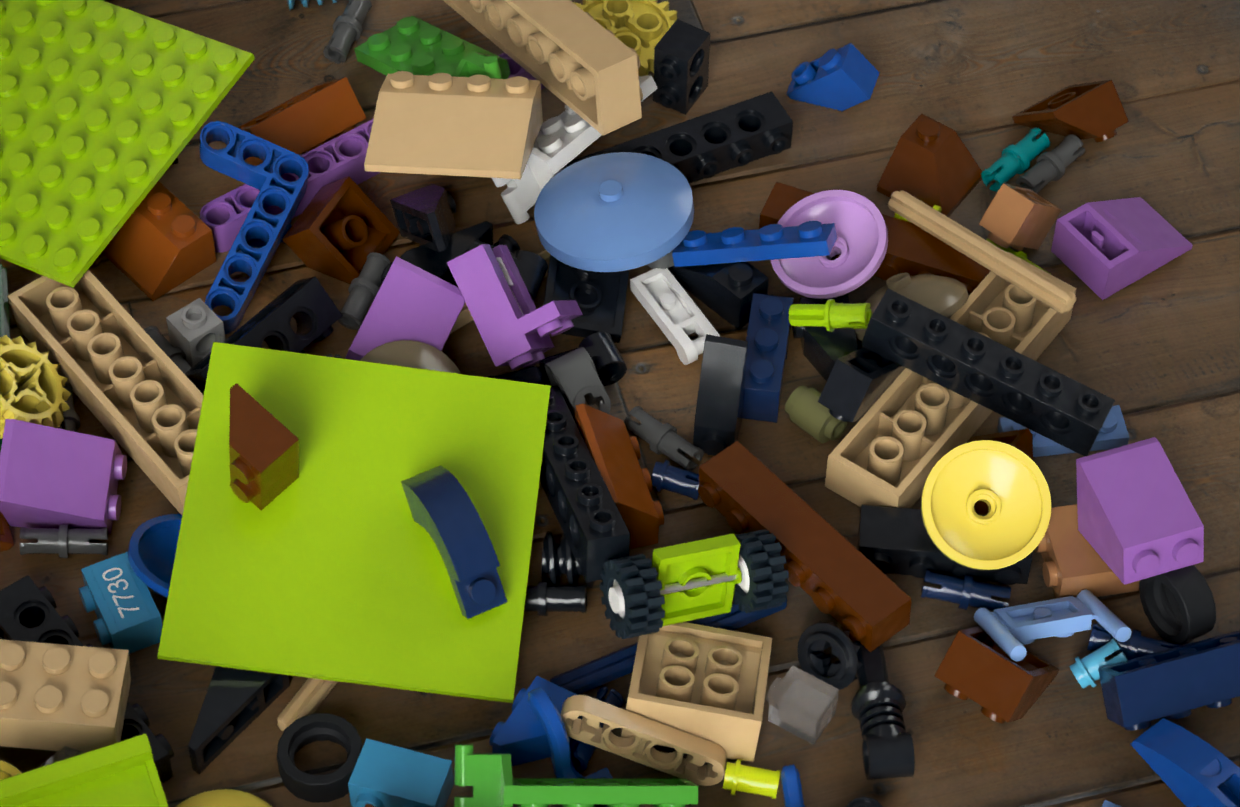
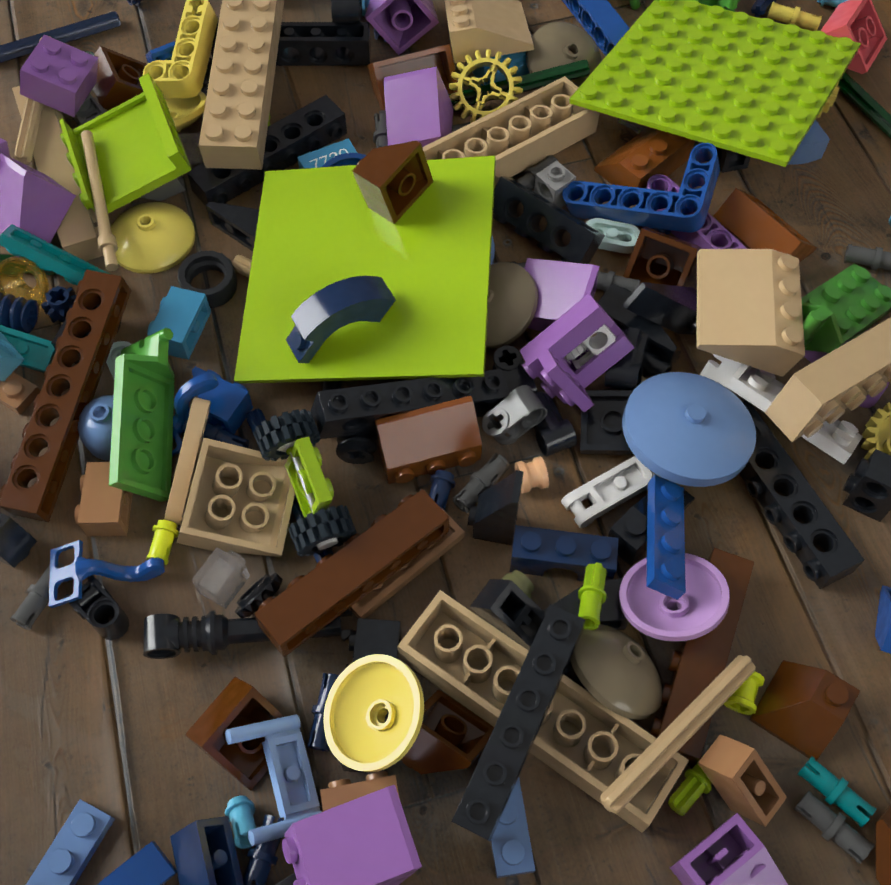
camera: 90 degrees right, 10 degrees up
(279, 276) = (618, 235): none -> light aqua plate
(655, 384) = (534, 474): none -> light nougat wheel

